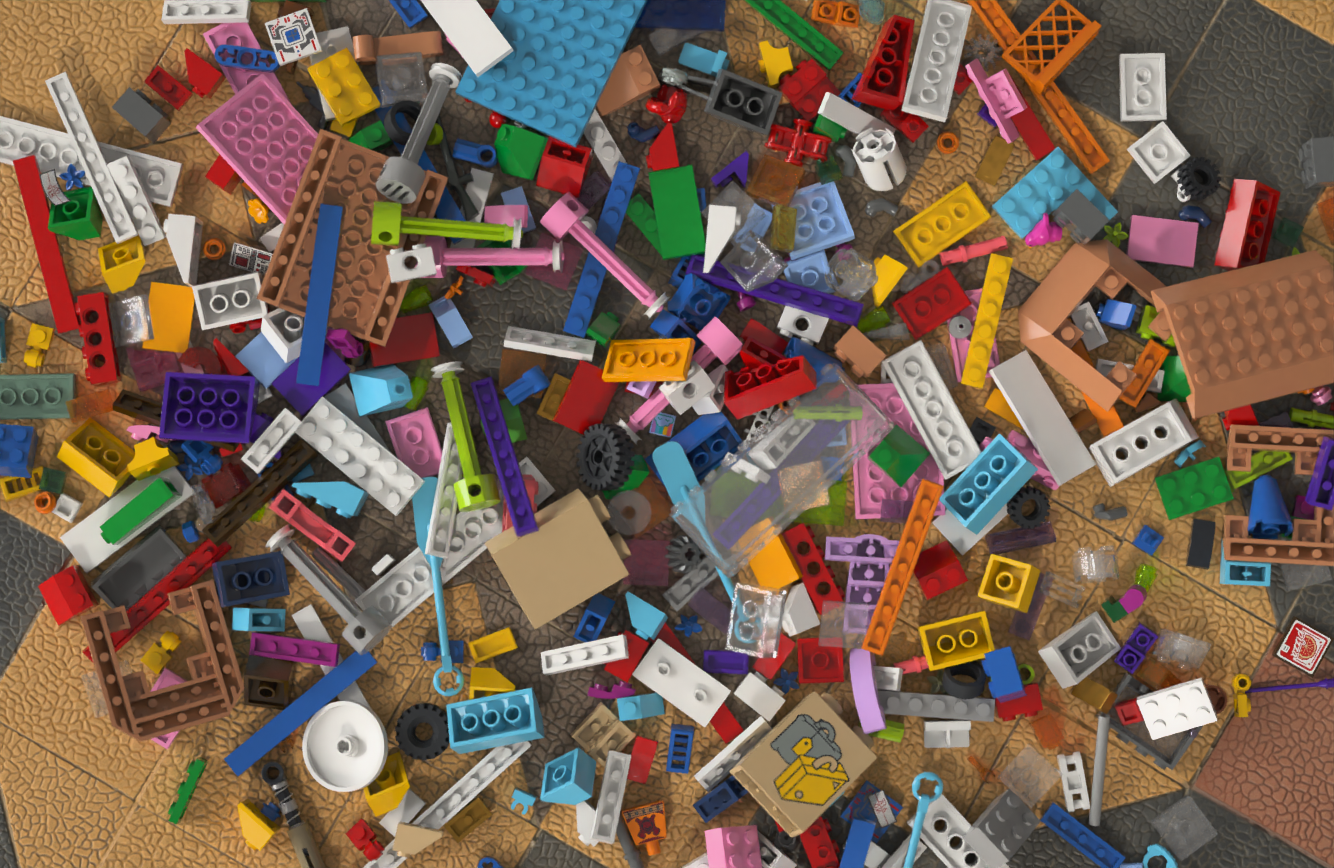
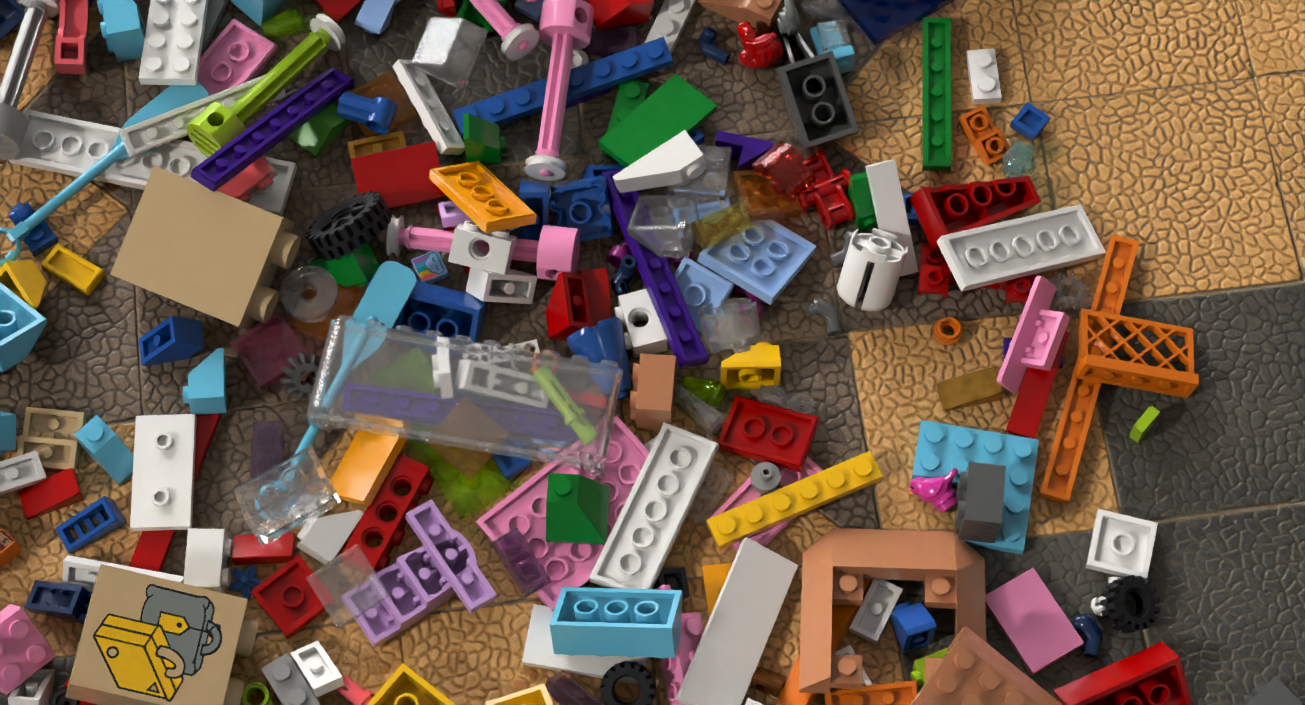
camera: 50 degrees right, 20 degrees down
(337, 572) = (44, 79): light grey axle -> none
(383, 564) = (82, 110): white tile -> none
(520, 301) = (449, 49): none -> clear slope
(546, 273) = (515, 73): clear pink plate -> none
(584, 655) = (123, 354): white plate -> none
(619, 690) = (105, 411): magenta slope -> none
(624, 668) = (152, 396): red brick -> none
(663, 151) = (712, 72): red slope -> none
(689, 625) = (233, 439): blue plant -> none
(690, 584) = (275, 408): light grey tile -> none
(696, 51) = (833, 35): none -> clear tile
(725, 662) = (220, 504): dark purple tile -> none
(762, 315) = (624, 275): none -> dark blue arm
(767, 385) = (544, 319): red wedge -> none
(771, 159) = (786, 169): none -> clear red cylinder
(774, 63) = (884, 113): yellow brick -> none
(807, 88) = (879, 147): red plate -> none
(828, 171) = (819, 237): clear green tile -> none
(865, 690) = (268, 673): lavender slope -> none
(902, 567) = (455, 596): orange tile -> none
(938, 570) = (482, 648): red slope -> none
(942, 224) = (861, 387): yellow tile -> none
(964, 253) = (850, 430): coral pin -> none
(1097, 76) = (1144, 423): none -> lime tile
(1114, 234) = (998, 568): lime plant -> none
(1142, 87) = (1174, 478): white plate -> none

